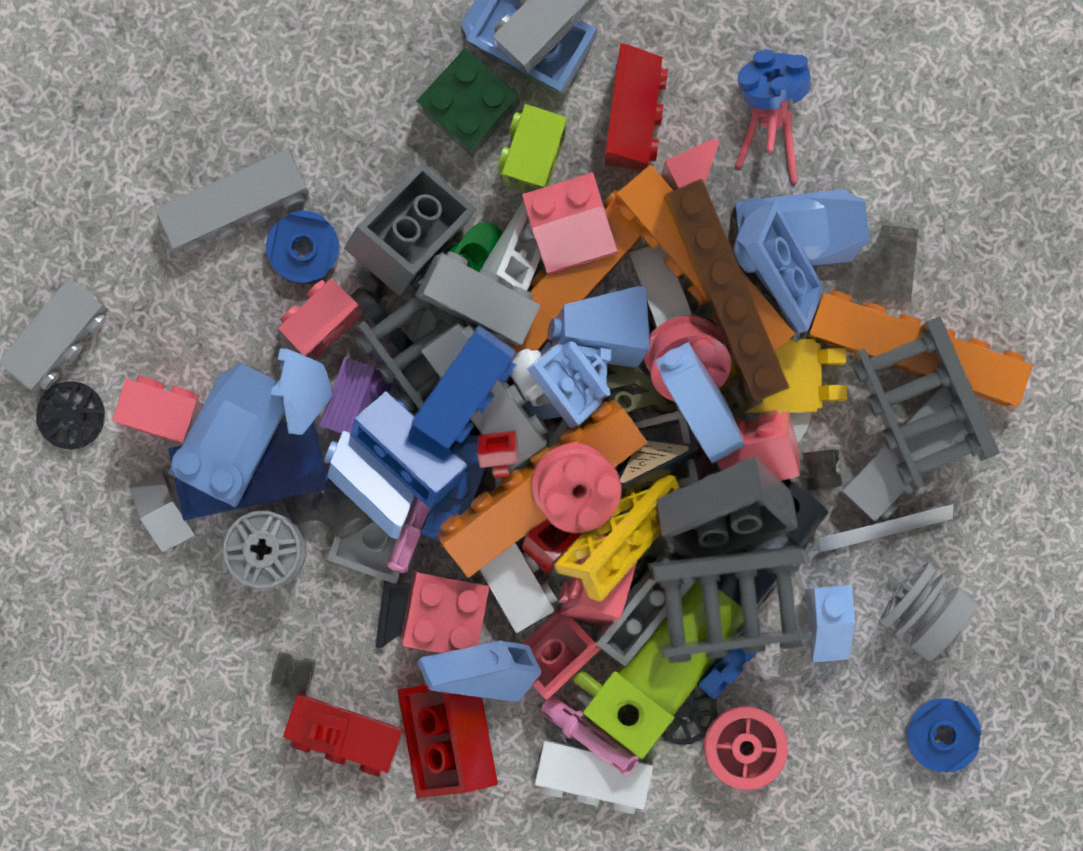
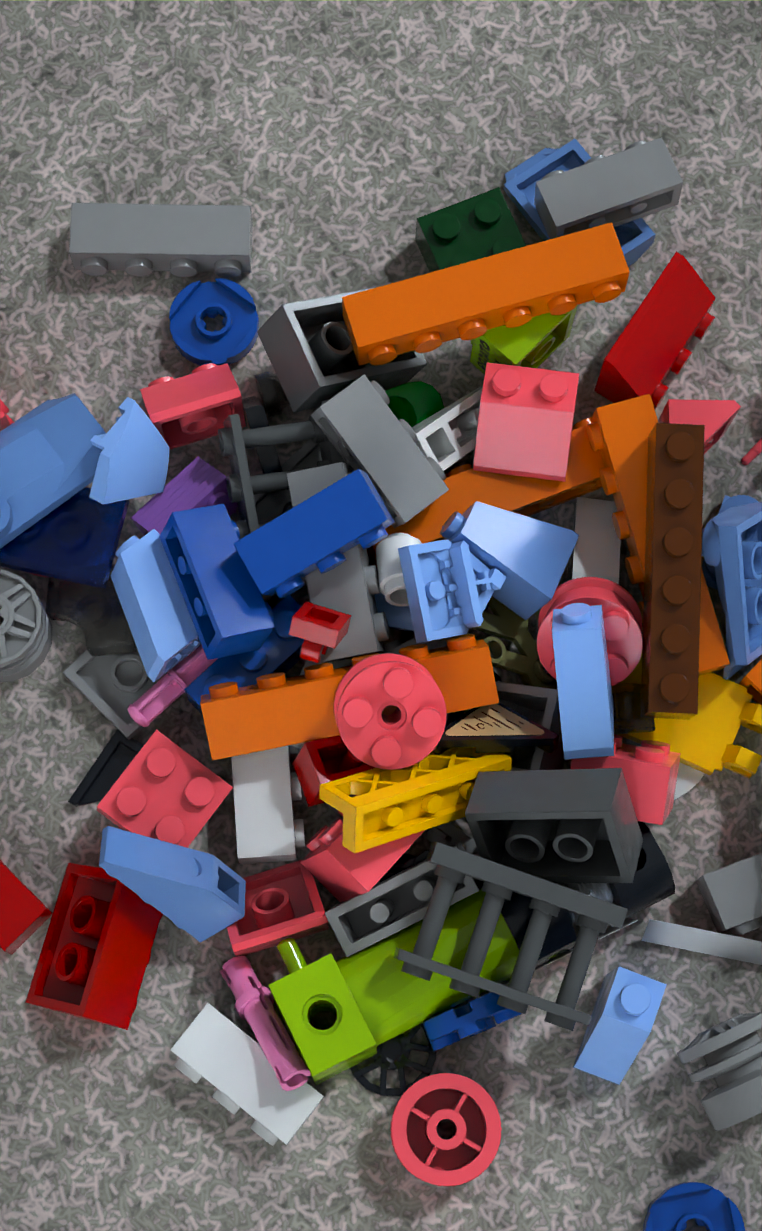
camera: 15 degrees right, 10 degrees down
(498, 147) = (485, 294): none -> orange brick
(822, 469) = (688, 841): clear smoke wheel -> none

